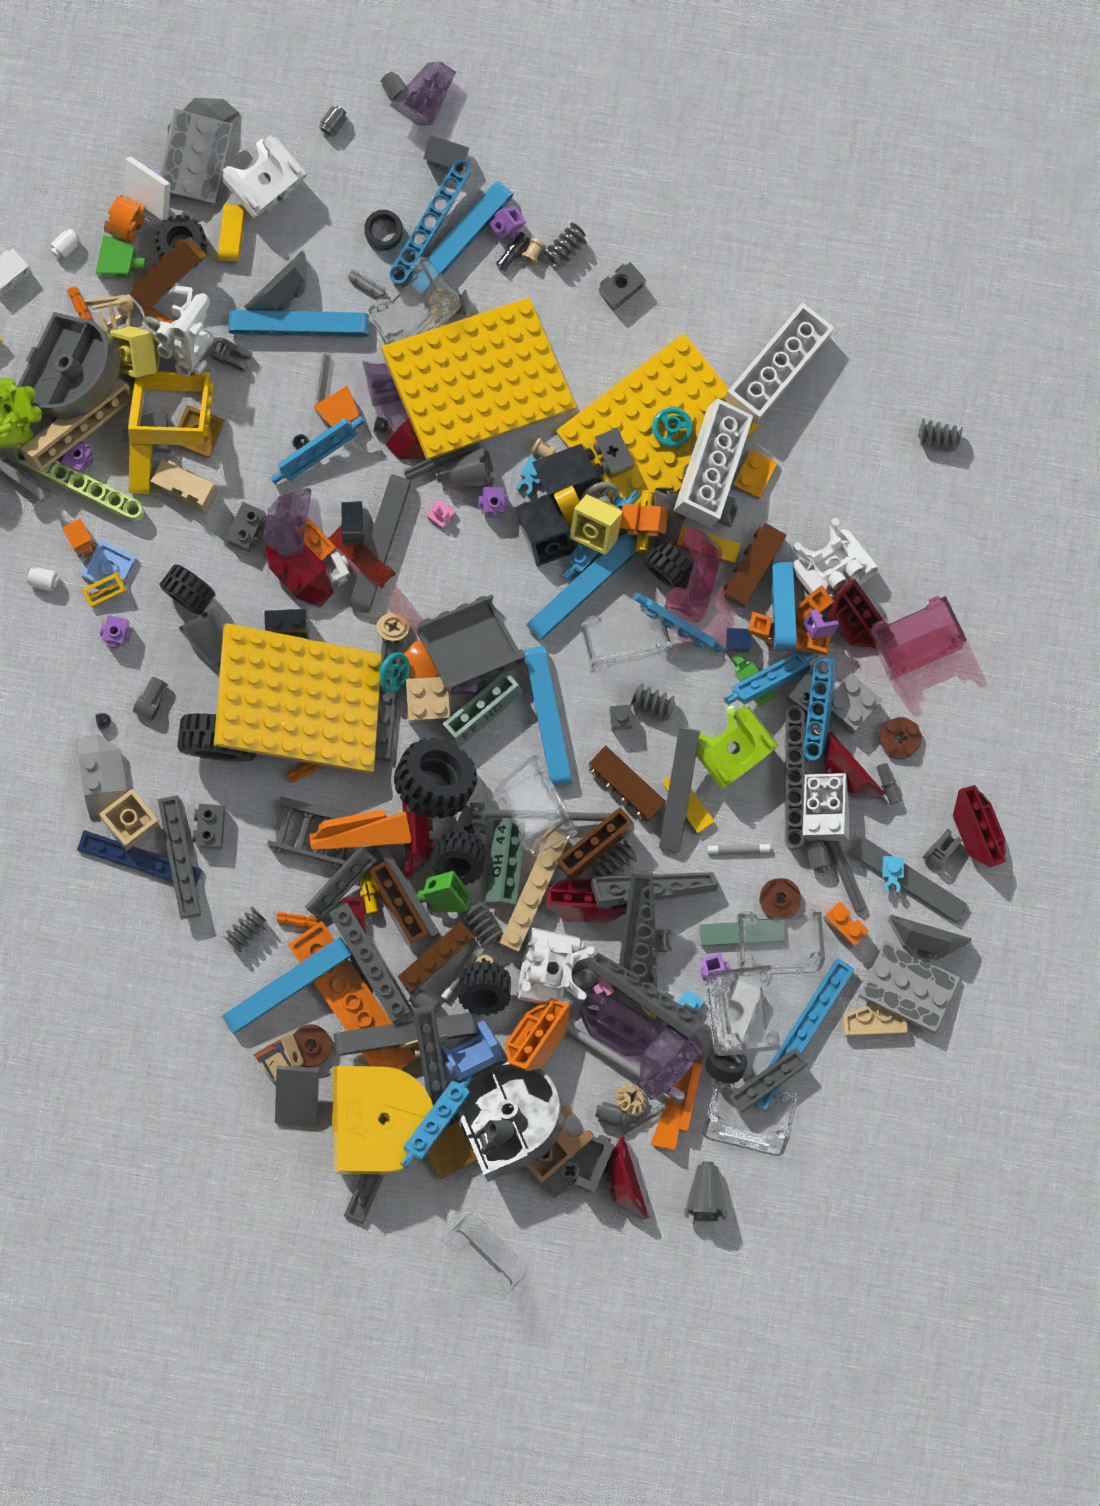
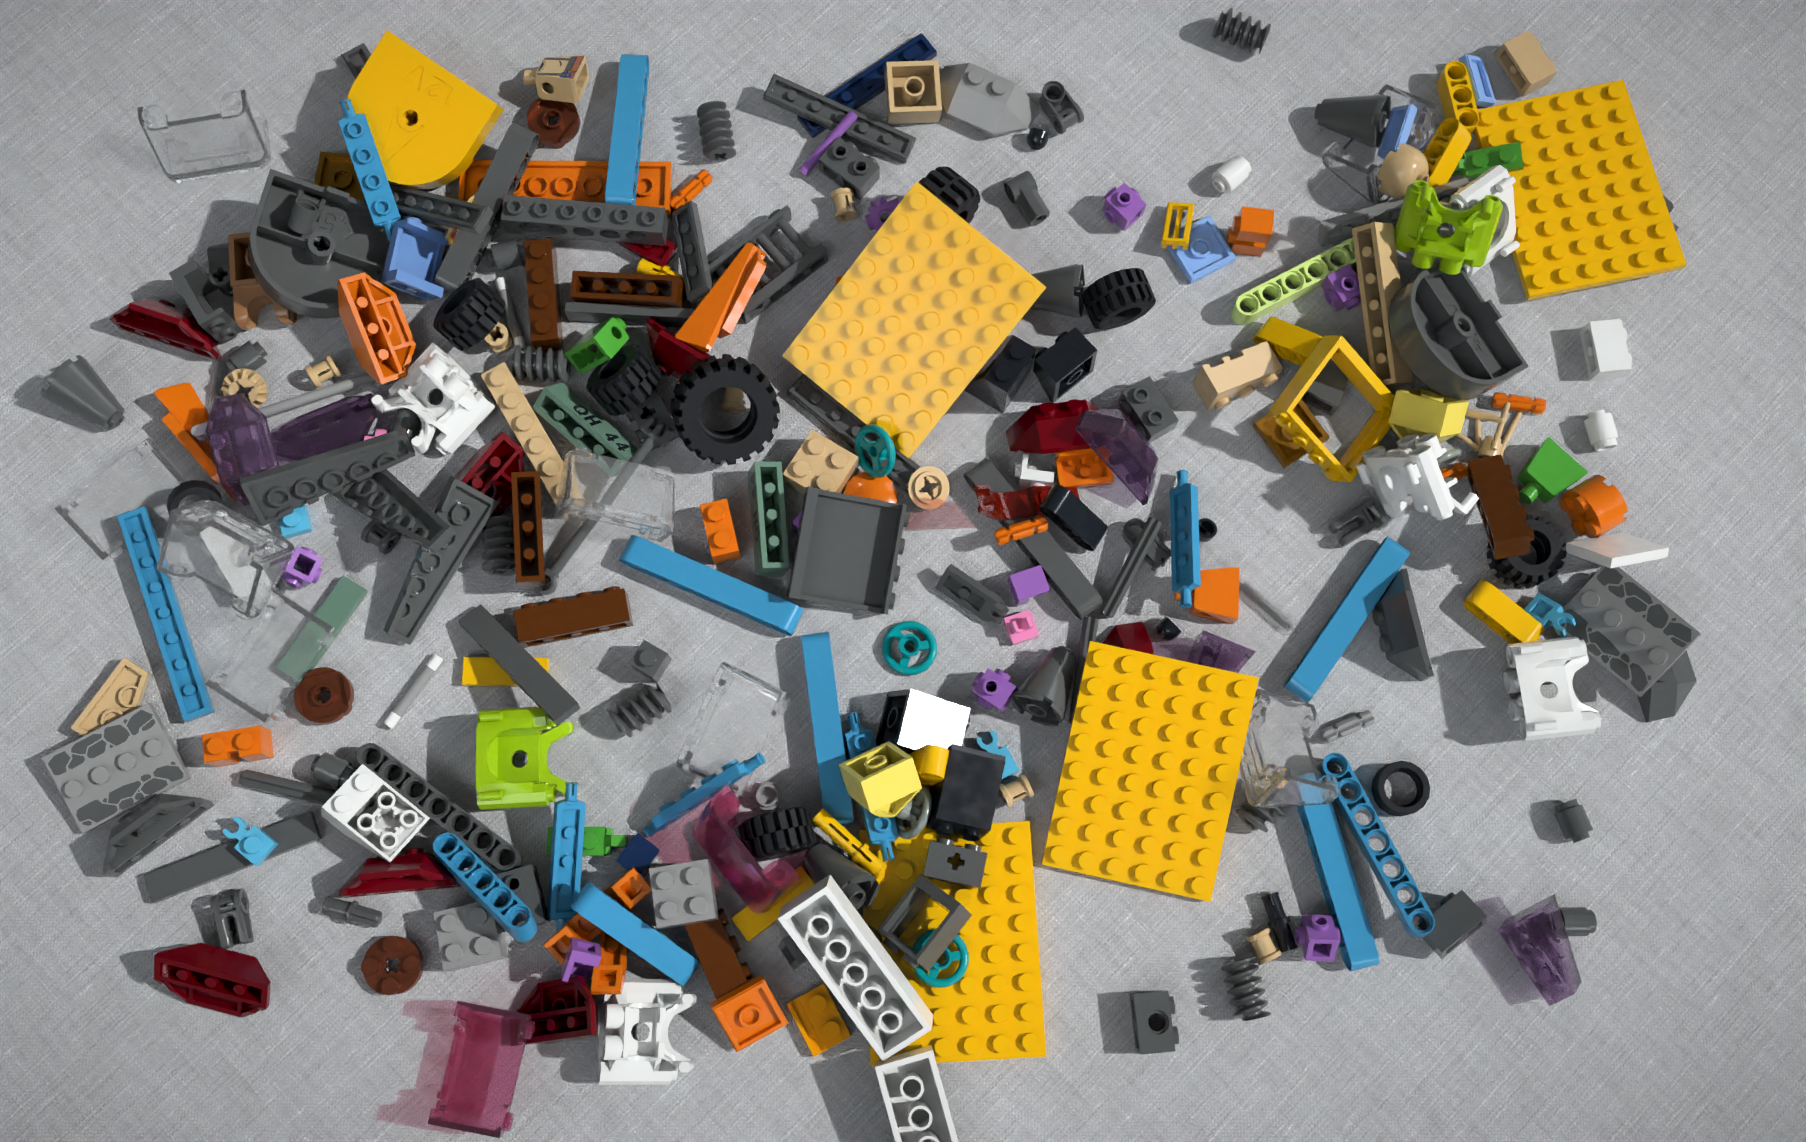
camera: 125 degrees right, 5 degrees down
(72, 716) = (1062, 111): none -> dark grey piece
(202, 851) = (837, 132): none -> medium lavender bar
(212, 208) = (1549, 613): none -> medium azure plate
(229, 778) = (879, 206): none -> medium lavender brick
(238, 812) = (843, 204): none -> tan bush
(254, 594) = (1064, 363): none -> black slope
(297, 1095) = (510, 68): dark grey tile -> none
(334, 471) = (1158, 551): none -> dark grey piece
(357, 471) = (1130, 567): none -> dark grey axle
(383, 549) = (1021, 530): none -> orange axle
(412, 525) = (1028, 584): none -> medium lavender panel
(442, 555) = (972, 595): none -> dark grey hinge
(510, 733) = (720, 531): none -> orange brick
(516, 567) = (902, 667): none -> teal piece
(583, 1059) = (323, 371): none -> tan bush
(644, 519) = (848, 838): orange brick -> none
(650, 591) = (767, 796): none -> light grey plate
(661, 462) = (907, 910): none -> dark grey window
(742, 591) = (683, 894): none -> light grey brick
(768, 1080) = (142, 539): dark grey tile -> none
(780, 513) = (749, 1013): none -> orange tile

